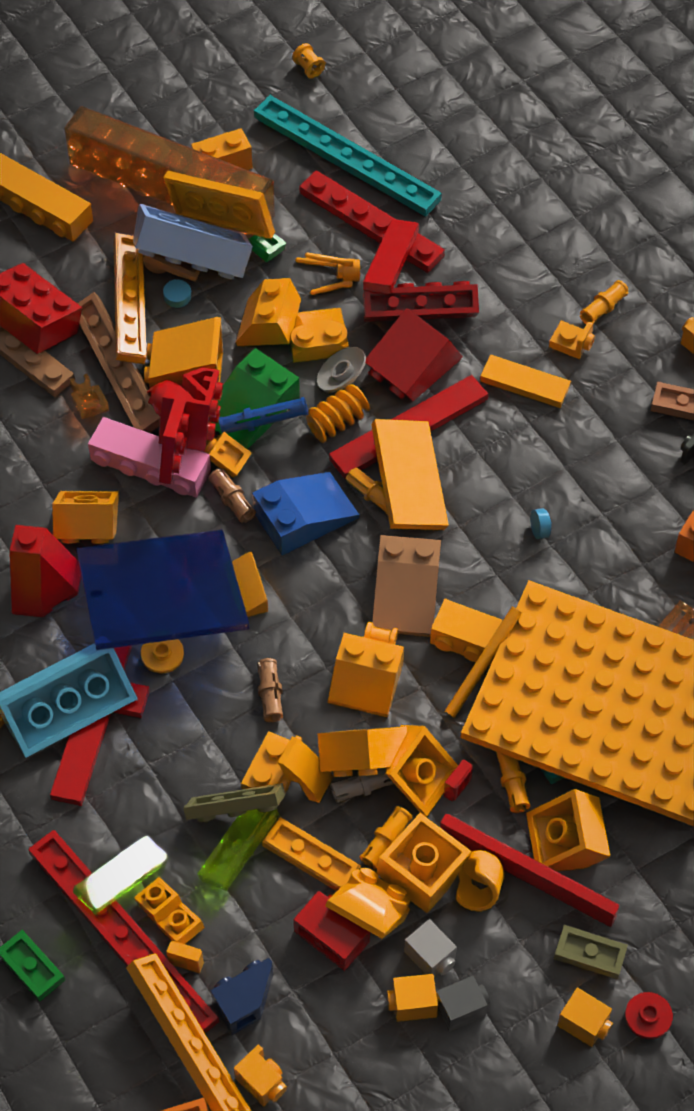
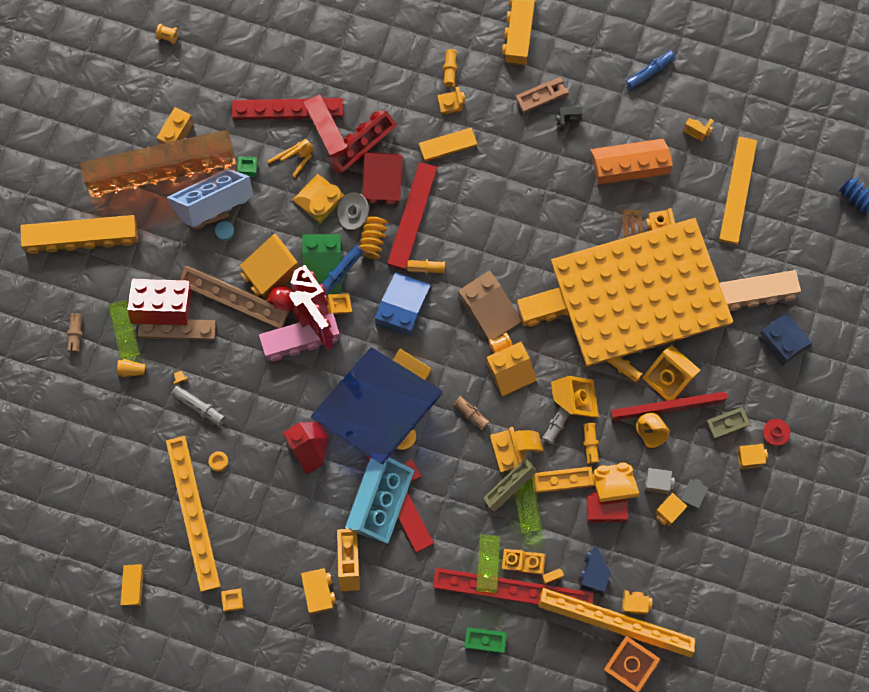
camera: 40 degrees left, 15 degrees up
(85, 516) = (297, 394): light orange slope -> none
(87, 399) = (237, 329): clear orange plate -> none
(129, 301) = (206, 255): light orange tile -> none
(220, 204) = (209, 165): light orange tile -> none
(232, 495) = (359, 324): medium nougat pin -> none
(270, 314) = (287, 208): light orange slope -> none
(348, 155) = (239, 78): teal plate -> none
(359, 750) = (546, 410): light orange slope -> none
(409, 475) = (439, 244): light orange tile -> none
(423, 862) = (621, 442): light orange slope -> none
(458, 780) = (600, 387): red tile -> none
(483, 662) = (563, 318): light orange bar -> none
(540, 523) = (524, 220): dark azure tile -> none

